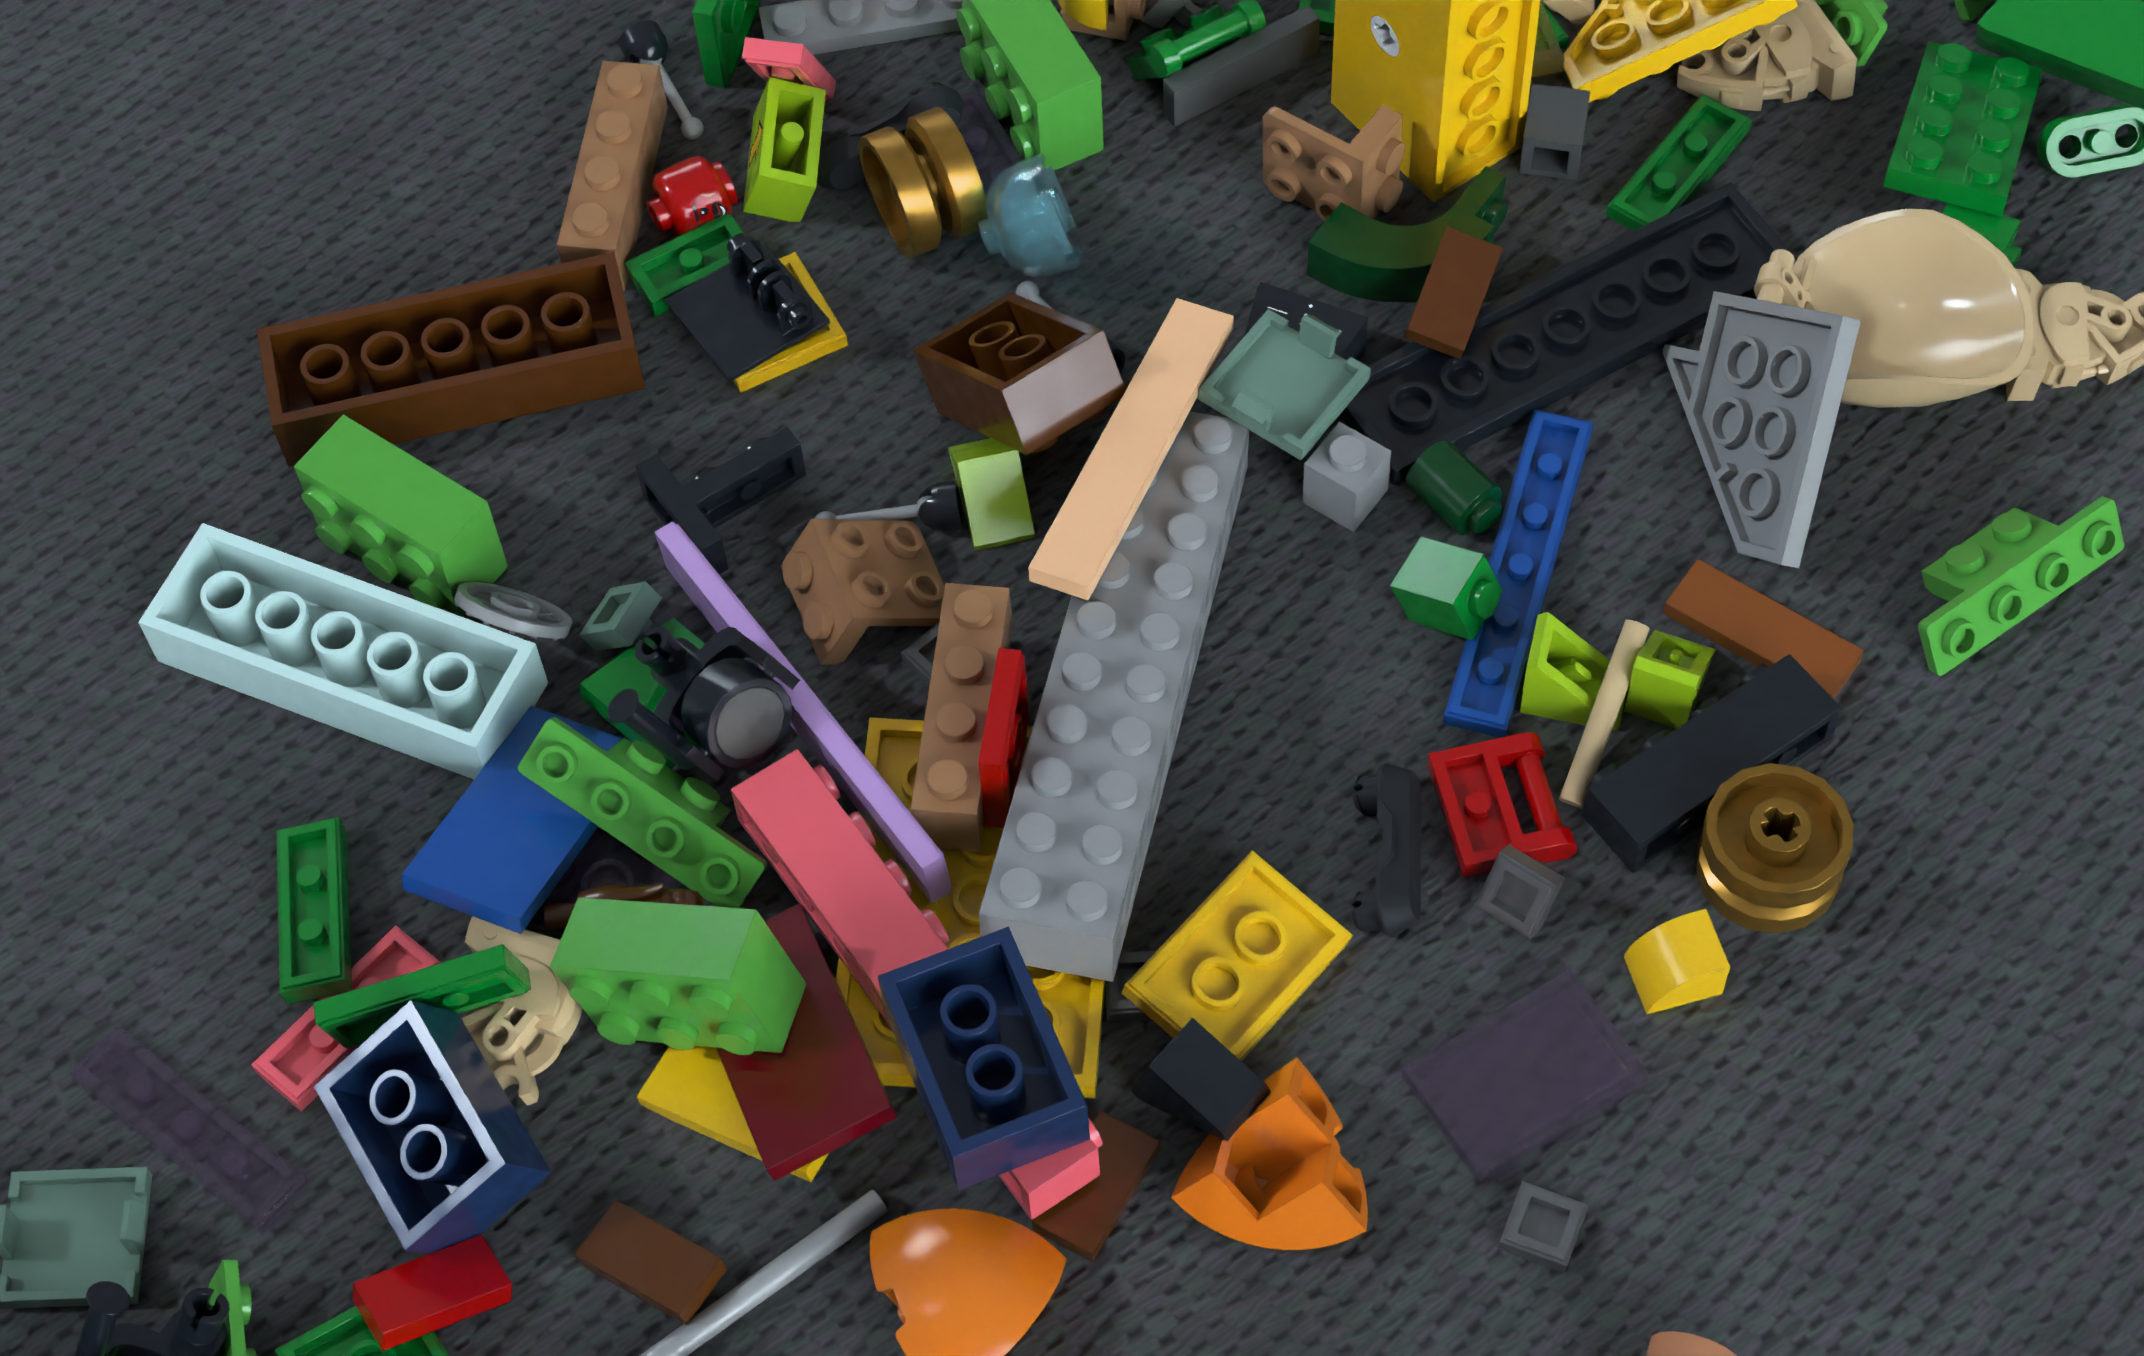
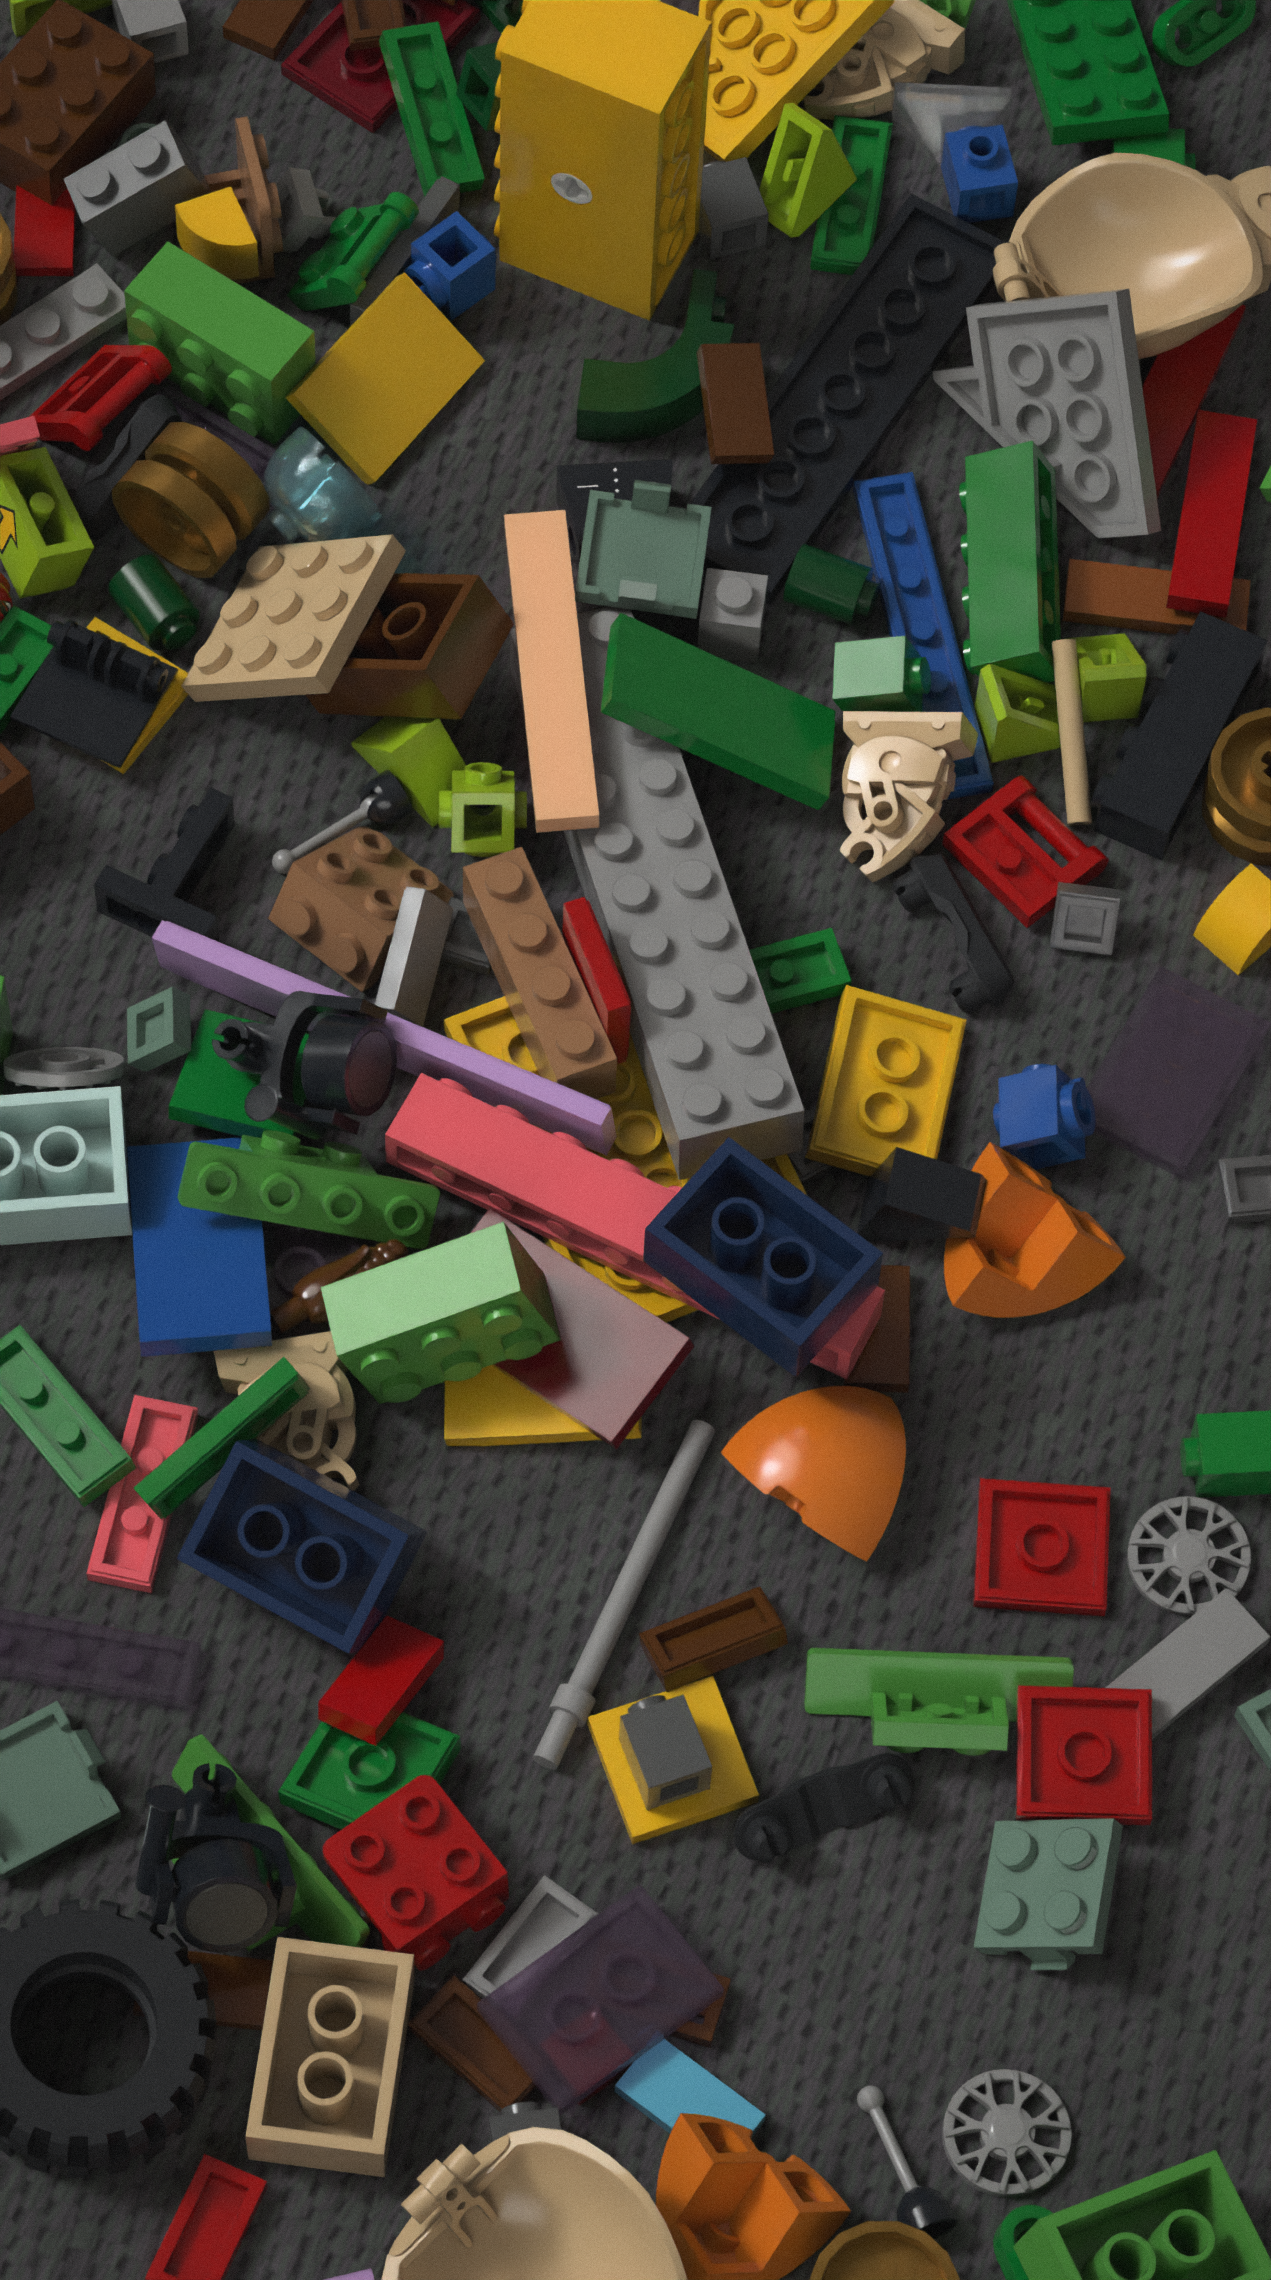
camera: 35 degrees left, 5 degrees up
(651, 1262) = (547, 1567): reddish brown tile -> none
(849, 259) = (154, 603): none -> dark green brick
(874, 650) = (414, 955): none -> light grey tile
(909, 71) = (99, 393): none -> red plate
(945, 314) = (293, 619): none -> tan plate
(1005, 546) = (480, 830): none -> lime brick
(1160, 153) = (385, 379): none -> yellow tile
(1211, 818) = (801, 970): none -> green plate
(1272, 550) = (718, 711): none -> green tile
(1273, 76) = (453, 265): none -> blue brick
(1324, 170) = (554, 334): medium nougat bracket -> none
(1366, 1058) = (1044, 1116): none -> blue brick
(1412, 688) = (901, 775): none -> tan piece
(1637, 126) = (803, 172): none -> lime slope
(1637, 534) = (1011, 561): none -> green brick
(1803, 188) = (979, 173): none -> blue brick
(1808, 136) = (931, 110): none -> clear slope
(1858, 574) = (1211, 513): none -> red tile
(1890, 454) = (1178, 389): none -> red tile

